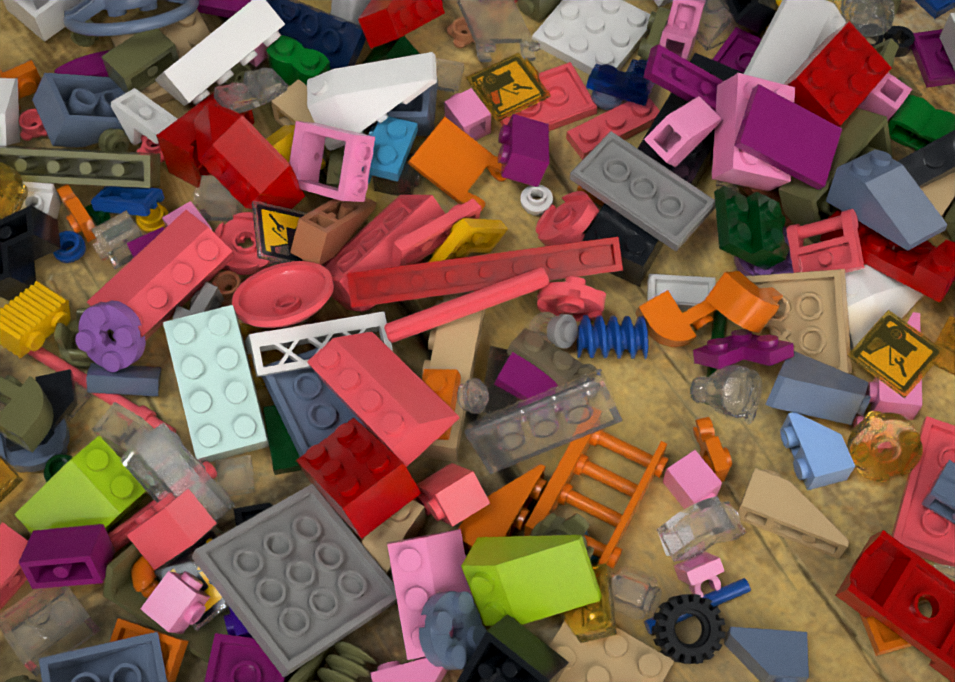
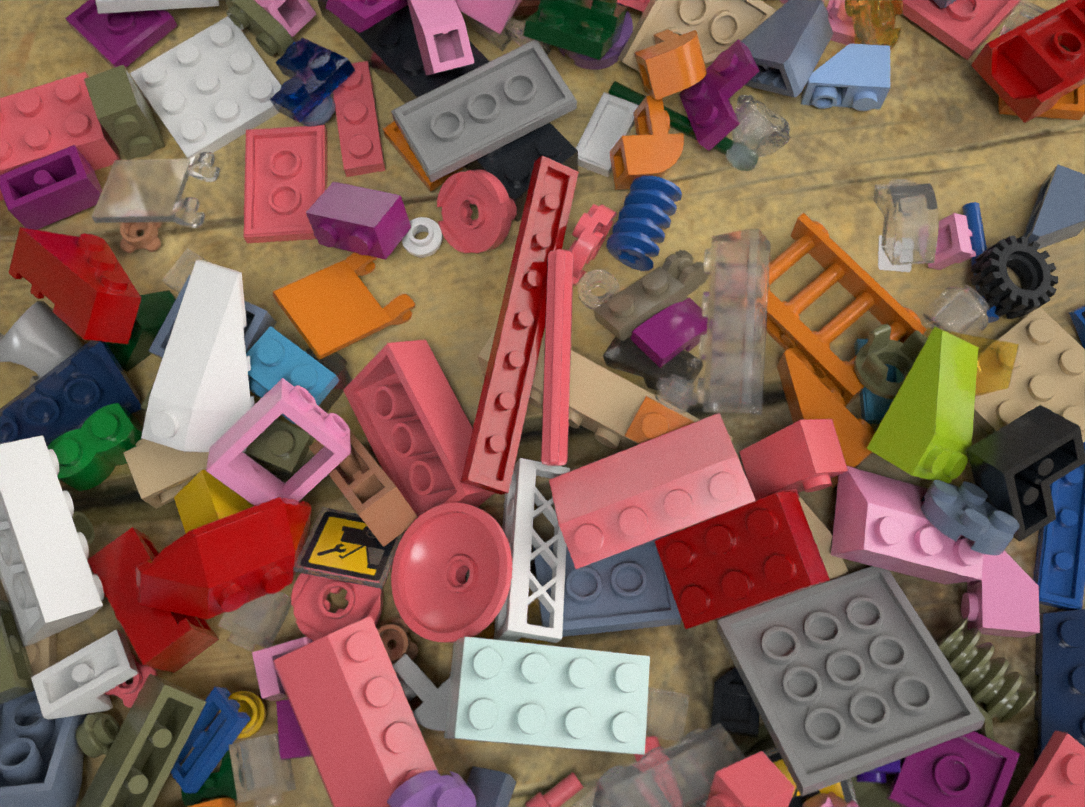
camera: 65 degrees left, 10 degrees up
(257, 89) = (118, 515): clear slope -> none
(281, 445) = (655, 642): dark green tile -> none
(424, 241) = (439, 361): coral plate -> none
(468, 114) = (269, 268): bright pink brick -> none
(470, 236) = (457, 327): yellow plate -> none
(508, 86) = (249, 208): clear yellow piece -> none
(562, 330) = (619, 268): light grey plate -> none
(691, 480) = (848, 208): bright pink brick -> none
(711, 449) = (821, 177): orange plate -> none
(785, 511) = (906, 133): tan slope -> none

